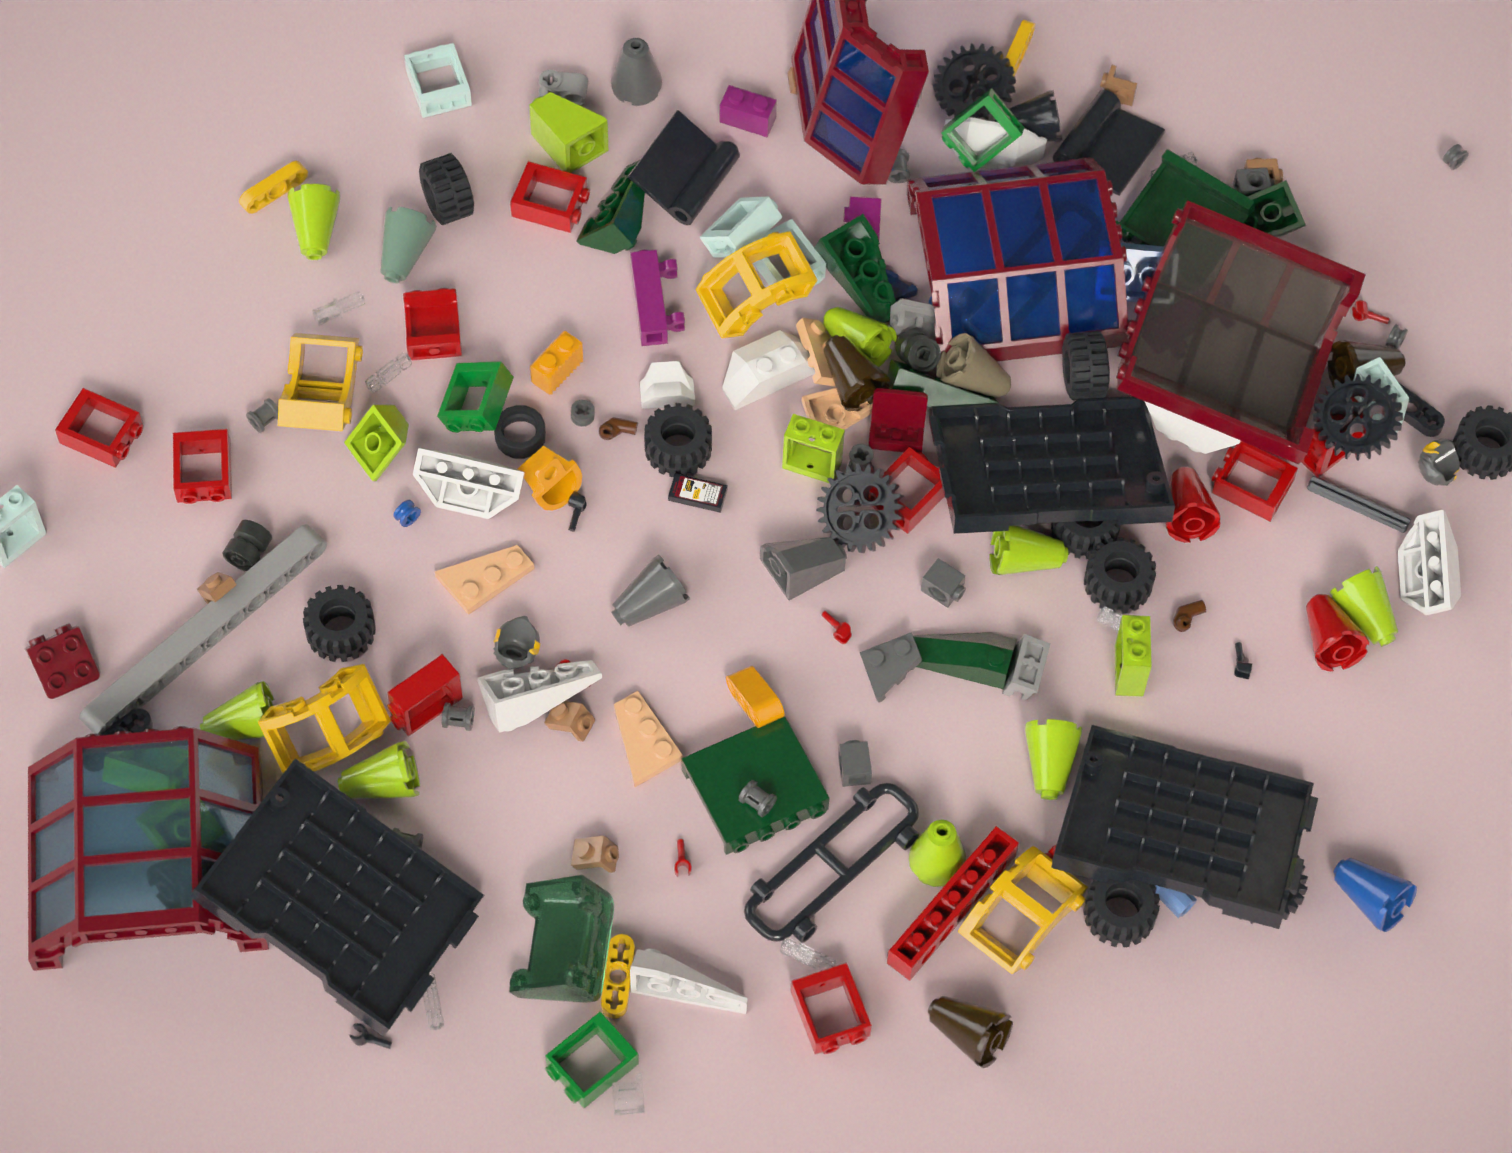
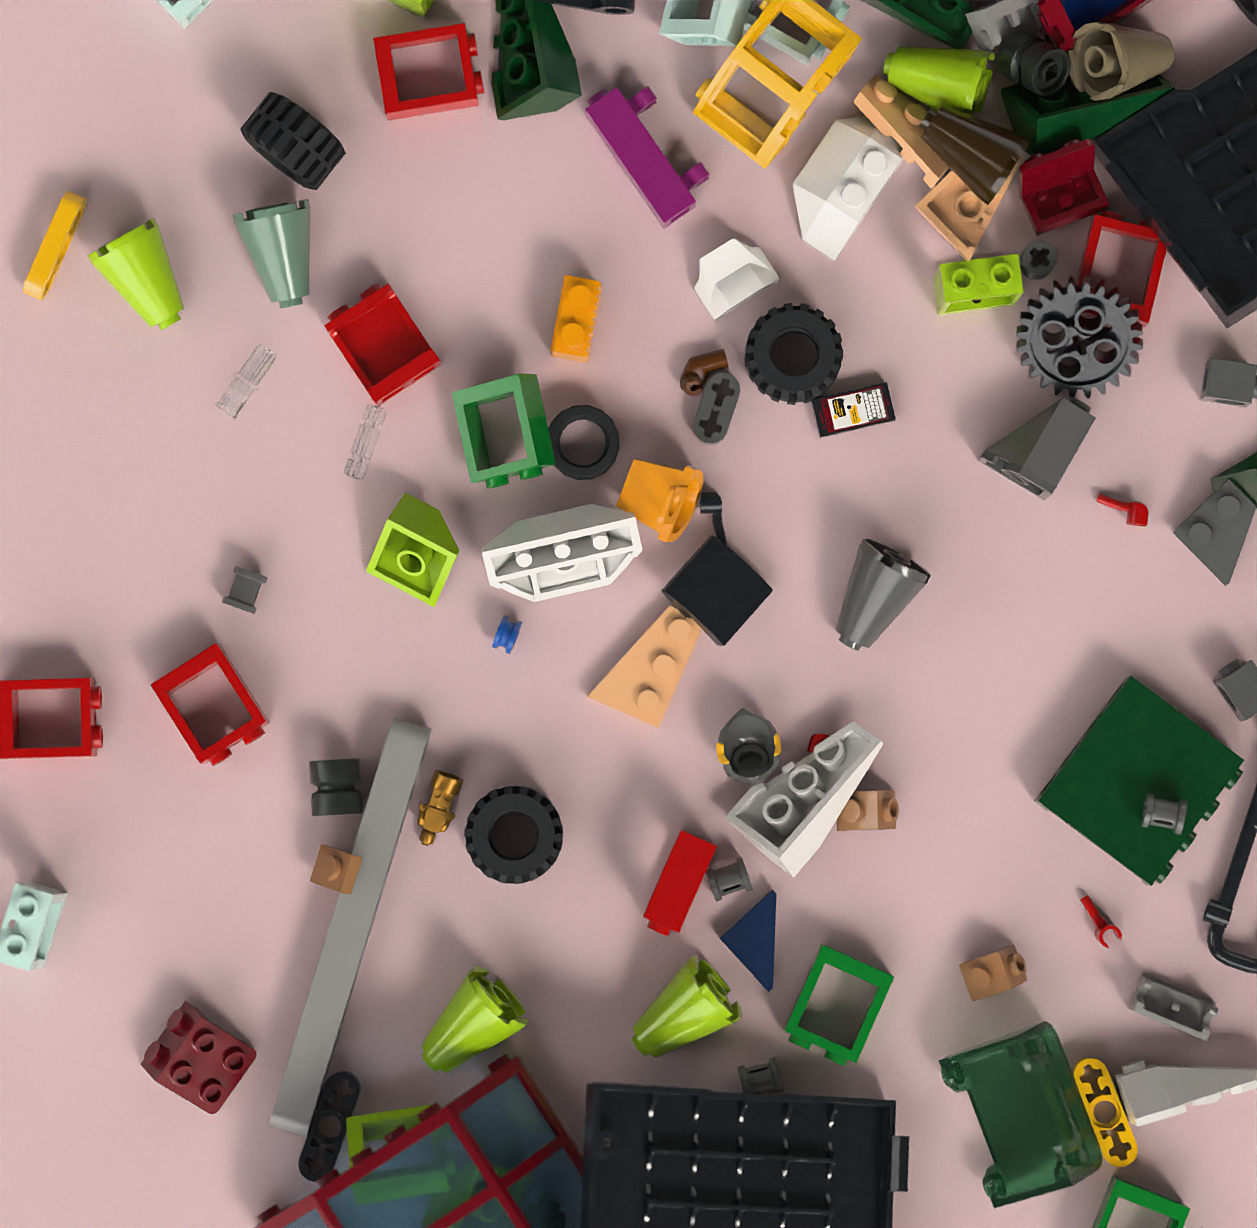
camera: 20 degrees left, 25 degrees up
(299, 594) = (436, 814): none -> pearl gold piece
(318, 414) = (311, 569): yellow window -> none
(366, 700) = (612, 1004): yellow window -> none
(453, 760) = (754, 940): none -> dark blue tile
(503, 802) = (804, 1037): none -> green window
(551, 548) = (717, 590): none -> black slope
(582, 420) = (649, 380): dark grey bush -> none
(615, 455) = (725, 411): none -> dark grey beam
(645, 739) = (971, 787): light nougat wing -> none
(699, 933) = (1173, 1006): none -> light grey hinge
(755, 696) = (1082, 669): light orange beam -> none

